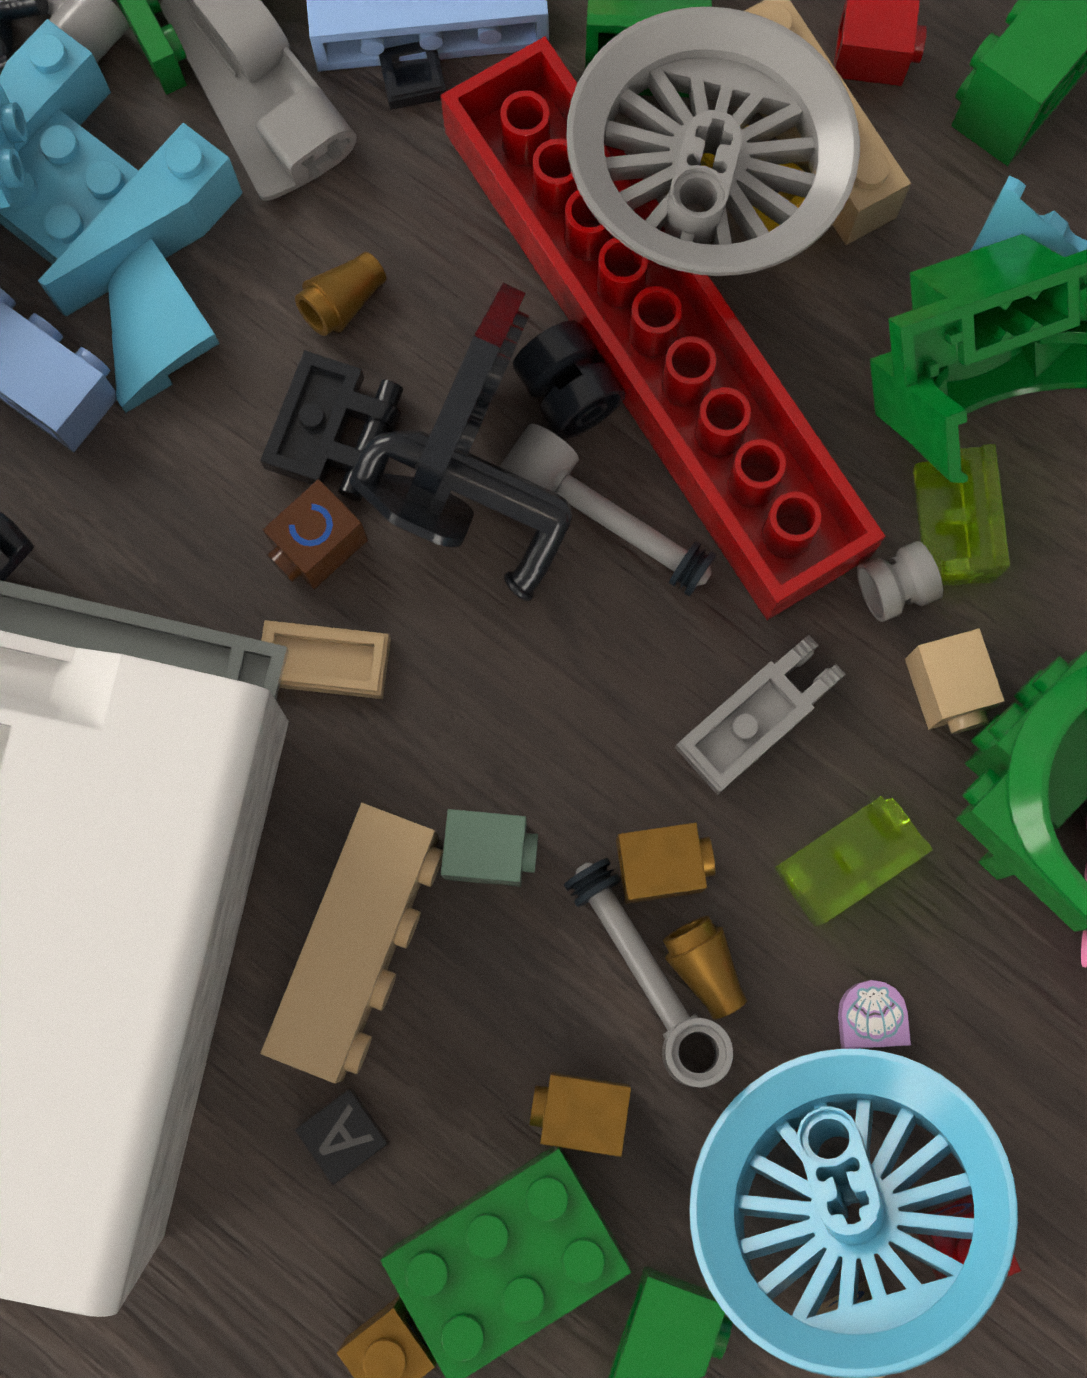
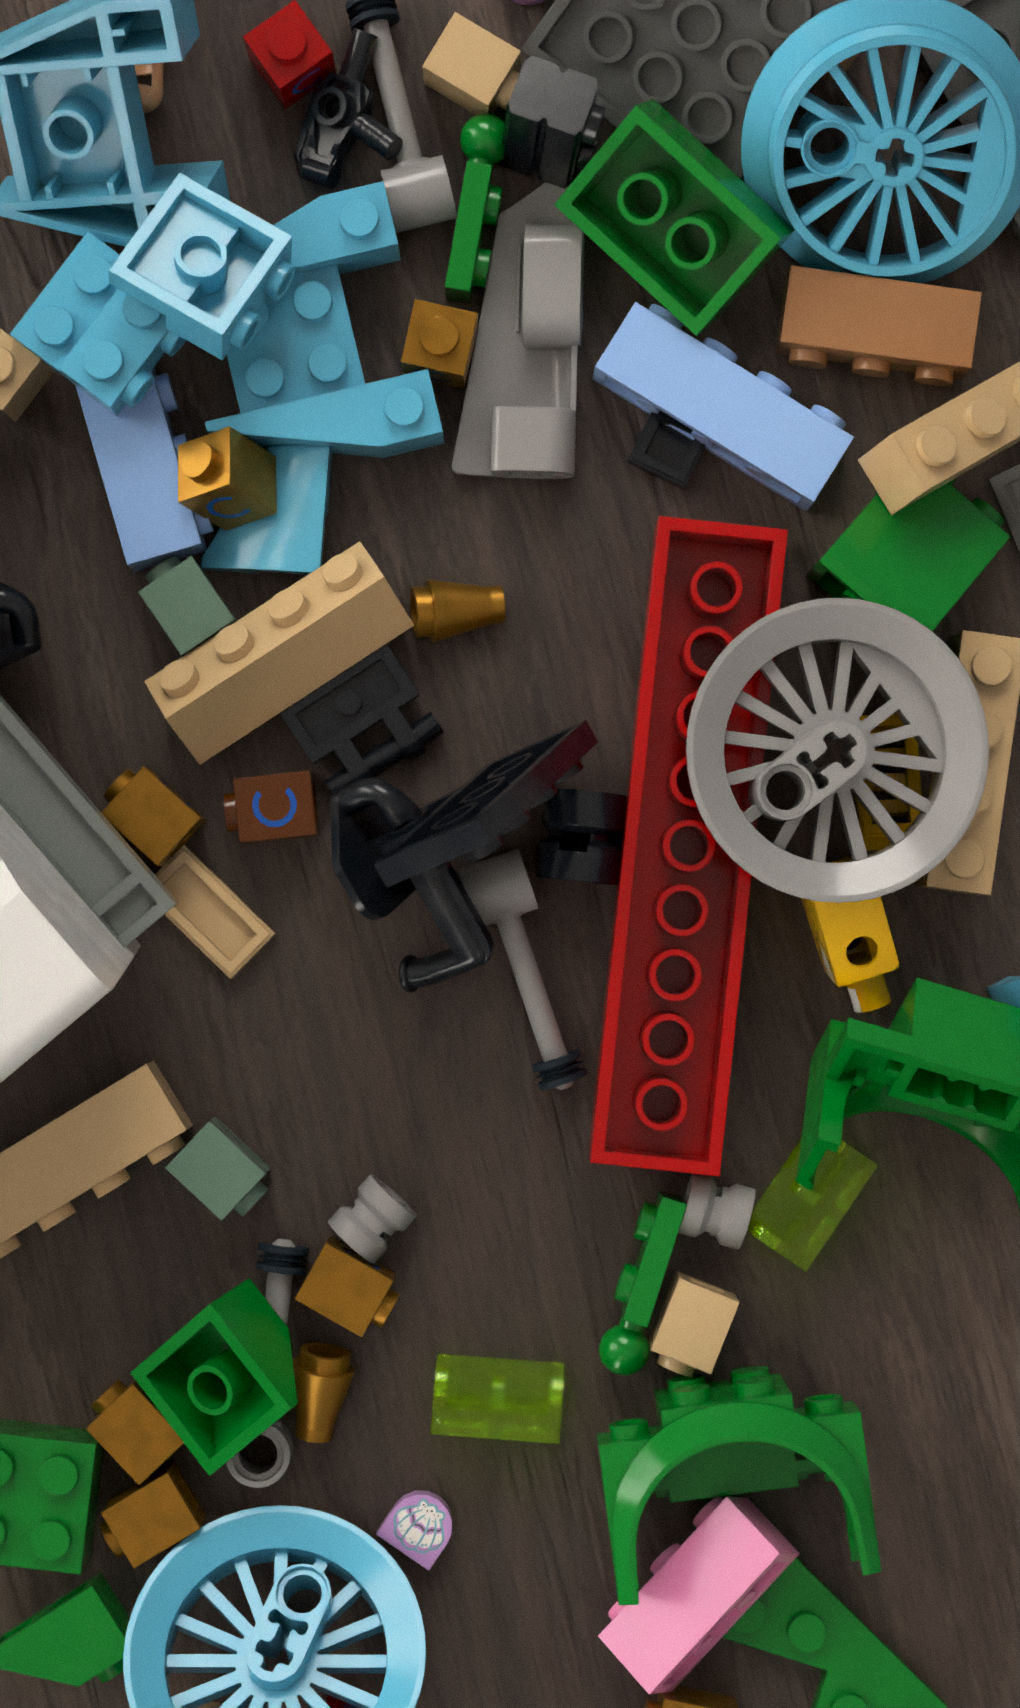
camera: 30 degrees right, 10 degrees up
(88, 315) = (227, 478): none -> pearl gold brick
(131, 437) = (185, 603): none -> sand green brick
(178, 98) = (440, 341): none -> pearl gold brick
(222, 604) = (151, 814): none -> pearl gold brick
(227, 414) = (279, 653): none -> tan brick
(620, 1006) = (223, 1376): none -> green slope
(639, 790) = (375, 1215): none -> light grey wheel
(651, 1181) = (151, 1516): none -> pearl gold brick
(754, 718) = (513, 1229): light grey hinge -> none
(827, 296) = (864, 966): none -> yellow torso
(890, 678) = (624, 1346): none -> green plate

